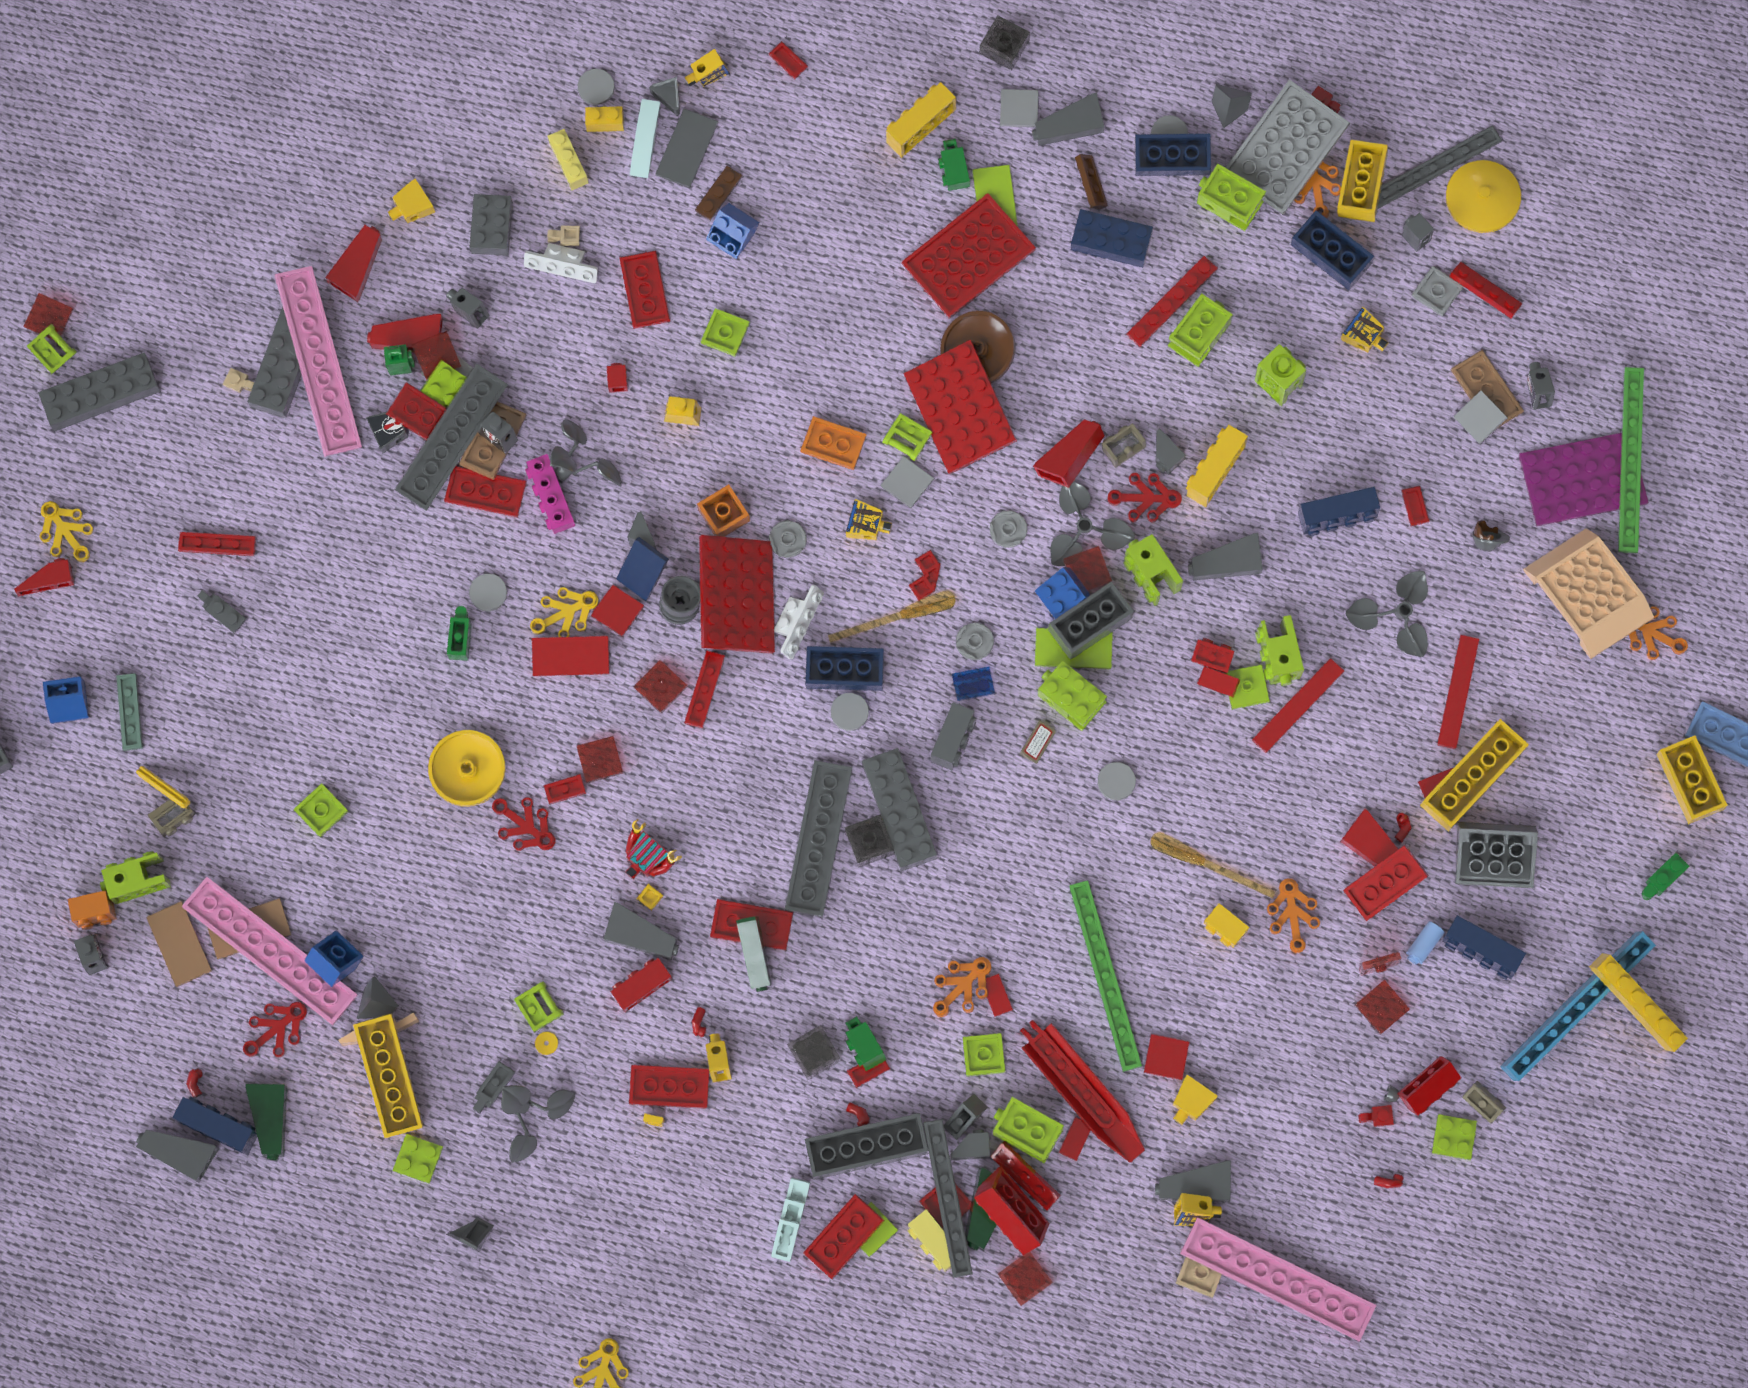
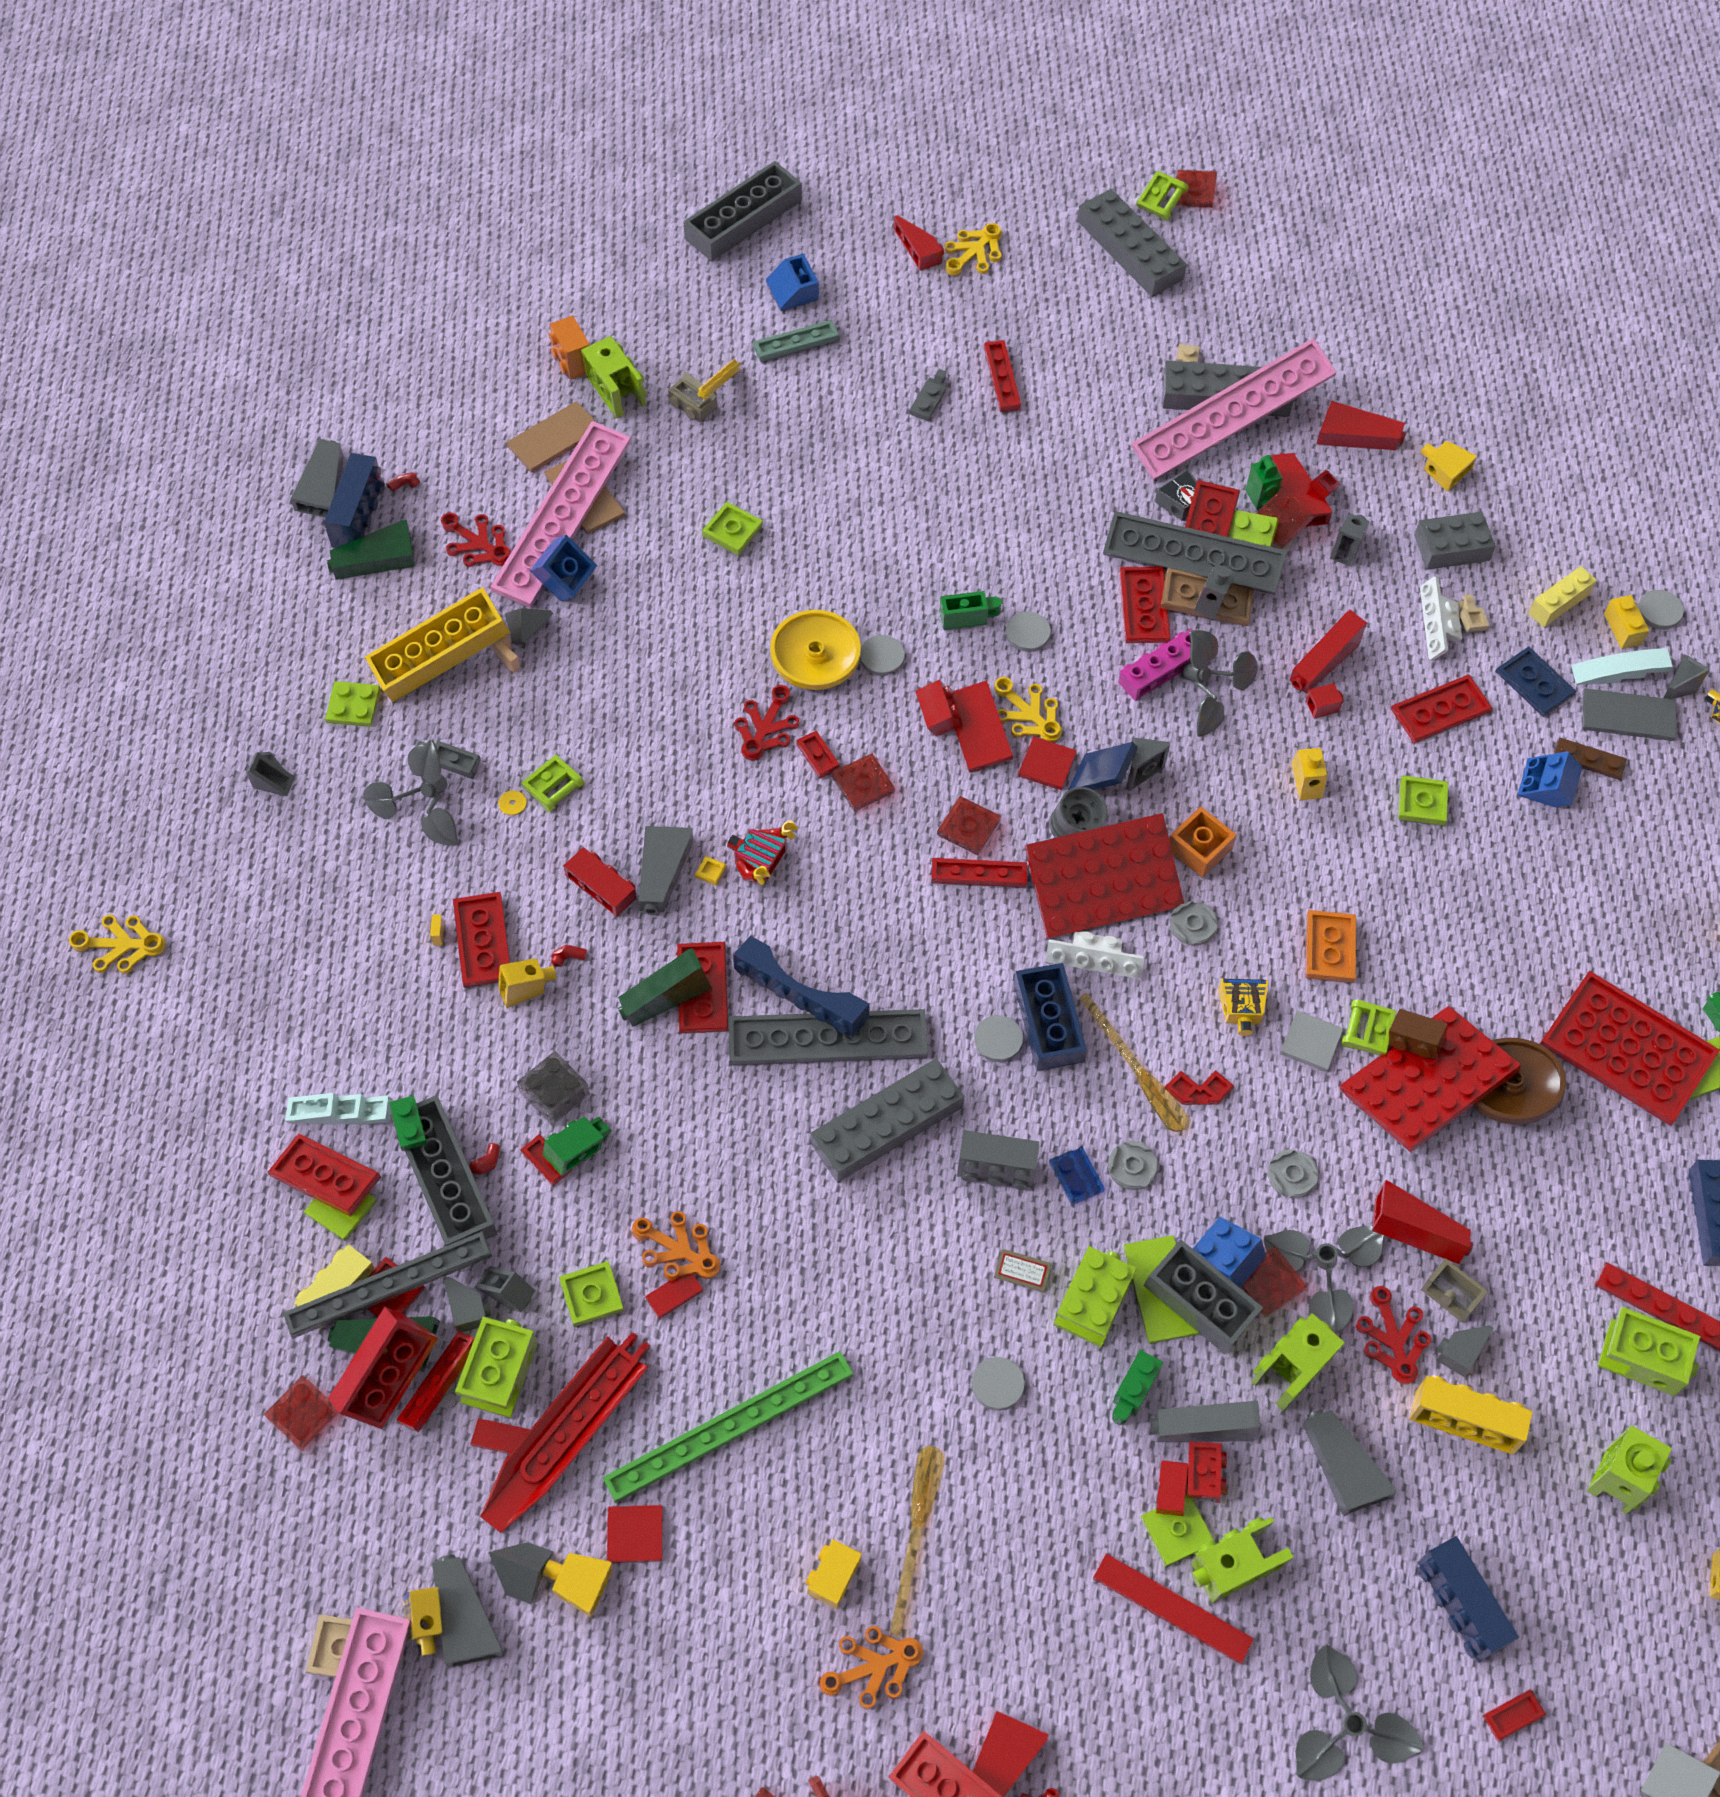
camera: 70 degrees right, 15 degrees down
(90, 953) = (524, 358): dark grey torso -> none
(409, 310) = (1325, 484): none -> red tile
(481, 715) = (882, 655): none -> light grey tile
(548, 683) = (938, 707): none -> red brick
(576, 361) = (1329, 652): none -> red slope
(638, 208) = (1536, 681): none -> dark blue tile
(804, 823) = (841, 1010): none -> dark blue arch
(824, 1163) = (407, 1123): none -> green plate
(869, 840) = (835, 1089): clear smoke brick -> none
(927, 405) = (1417, 1034): none -> reddish brown brick
(1142, 686) = (1135, 1386): none -> green brick
(1174, 1138) = (520, 1569): none -> dark grey slope
(1180, 645) = (1208, 1423): none -> dark grey slope

